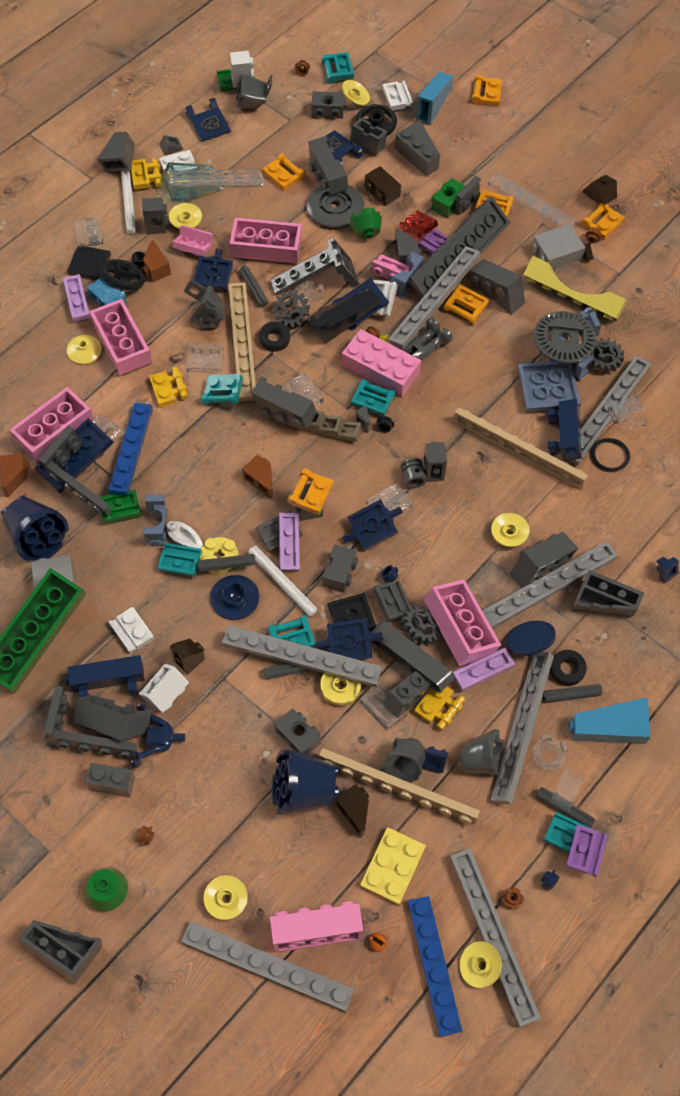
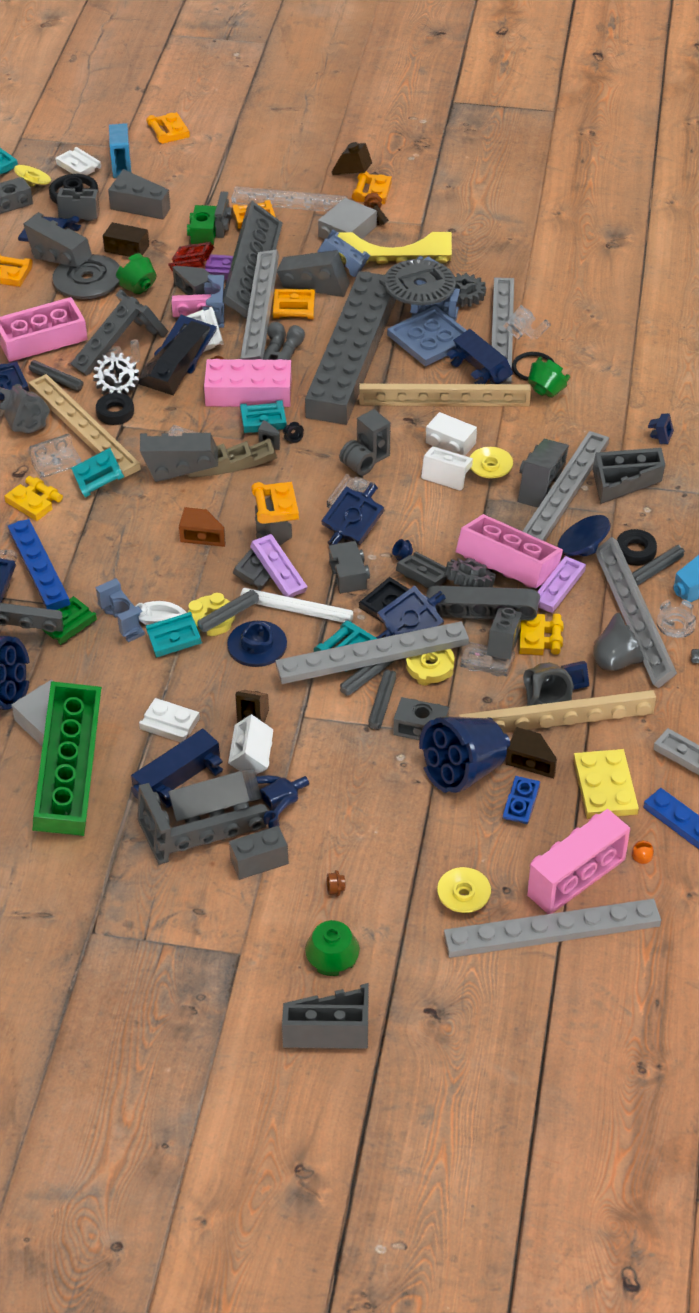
camera: 30 degrees left, 15 degrees down
(285, 697) = (382, 699): none -> dark grey axle
(322, 844) = (521, 800): none -> blue slope
(472, 516) = (445, 467): none -> white panel
(476, 370) = (350, 350): none -> dark grey brick
(498, 488) = (451, 434): none -> white brick
(534, 284) = (354, 259): none -> sand blue piece
(606, 475) = (547, 378): none -> green cone

